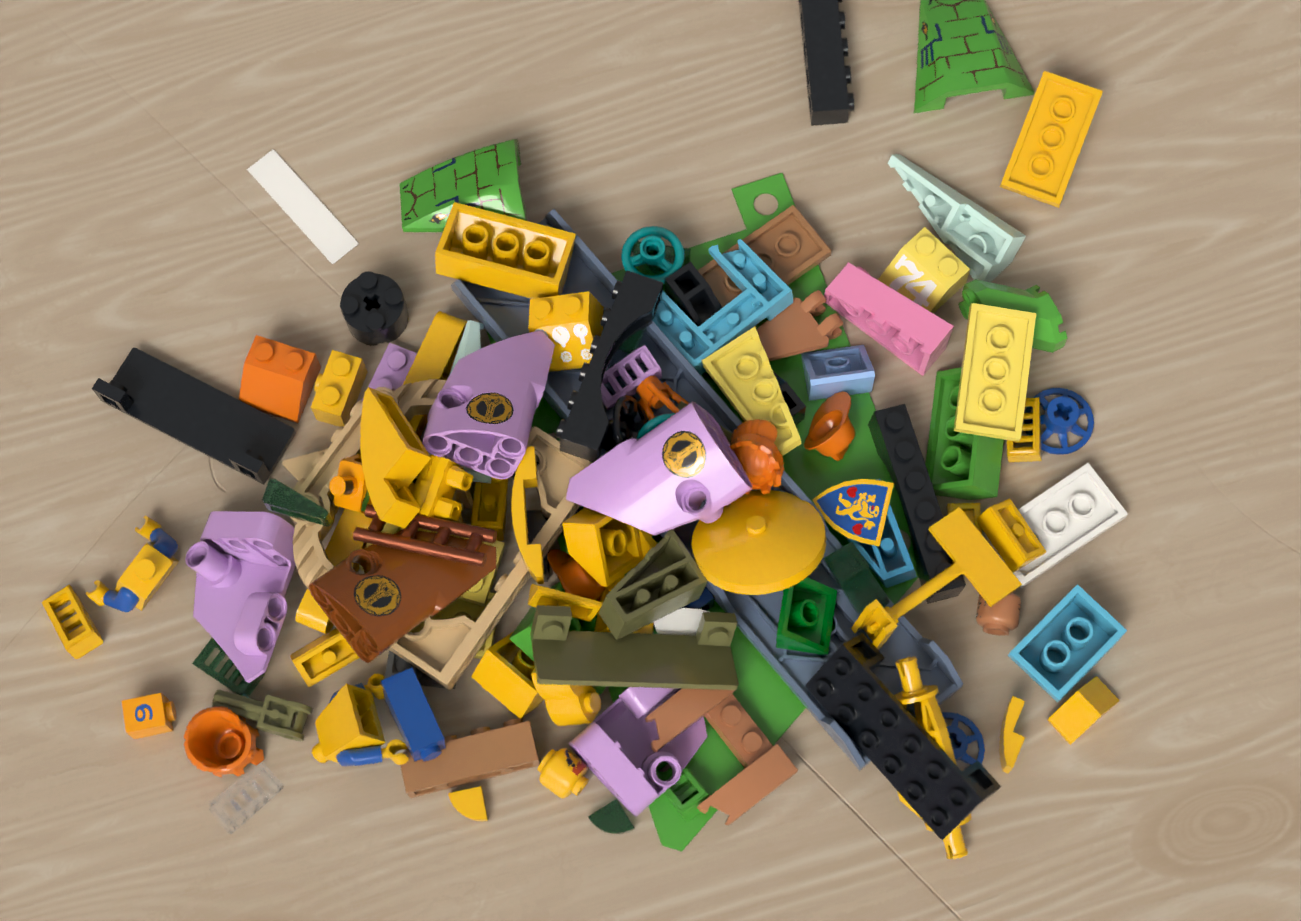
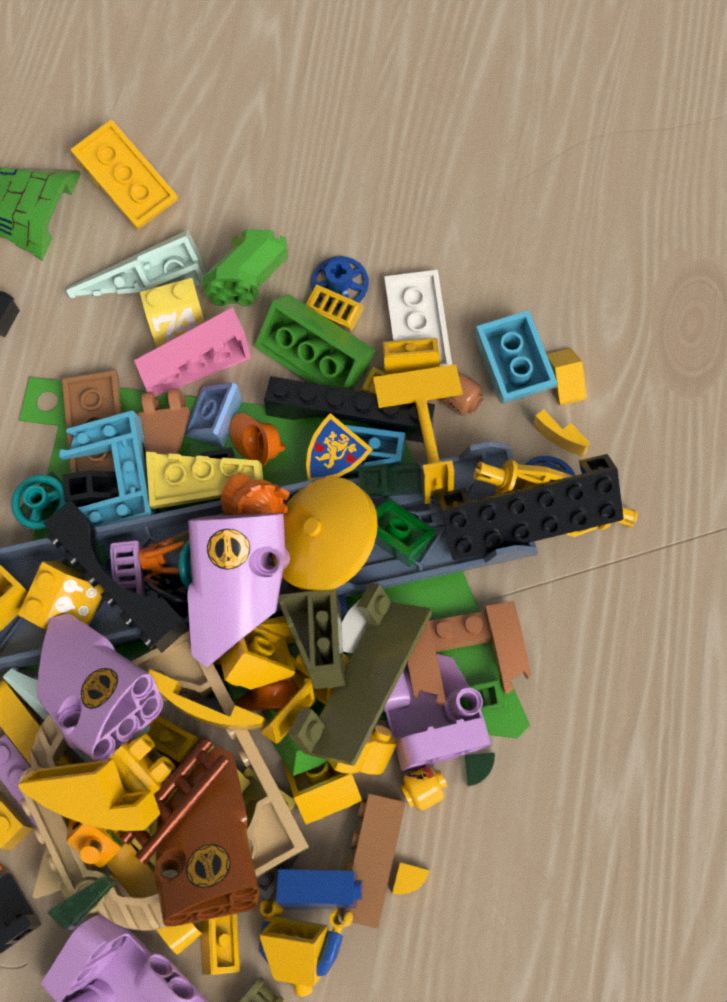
camera: 60 degrees left, 0 degrees up
(995, 372) = (285, 296): light yellow plate -> none

